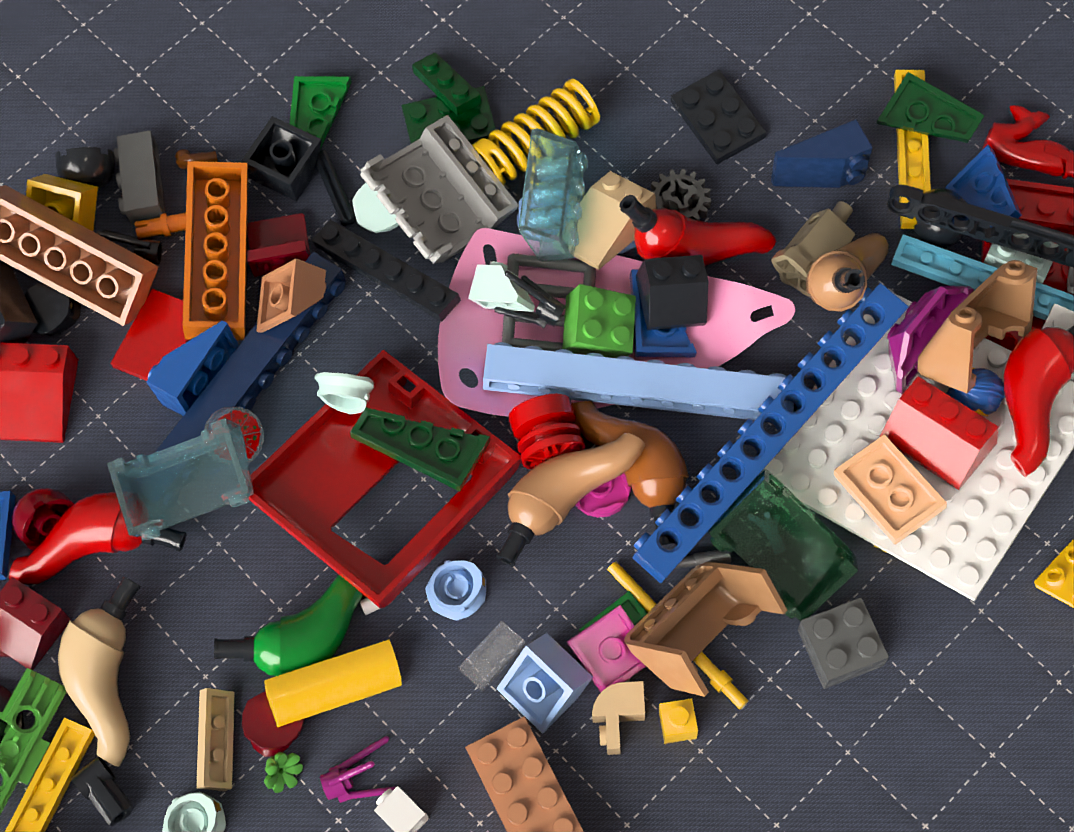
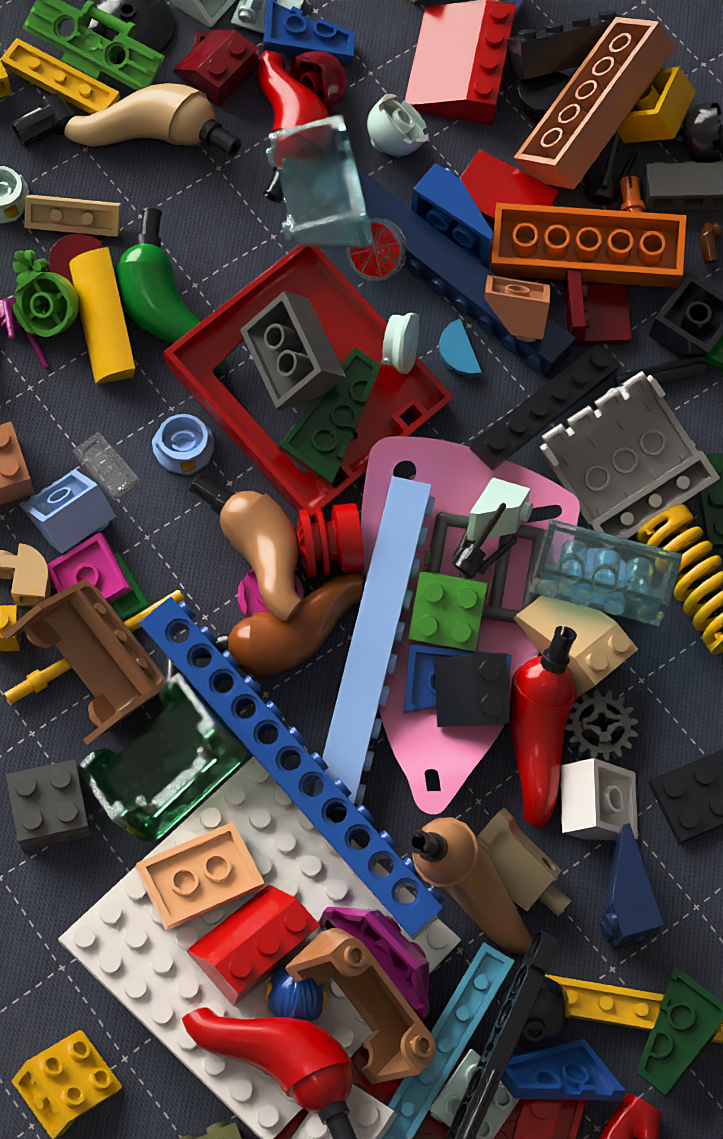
camera: 85 degrees right, 0 degrees up
(95, 437) = (395, 127): none -> light aqua cylinder
(327, 739) = (46, 304): none -> bright green cylinder
(330, 357) = (457, 352): none -> dark azure tile
(366, 483) = (292, 351): none -> dark grey slope
(746, 195) = (597, 800): none -> white slope

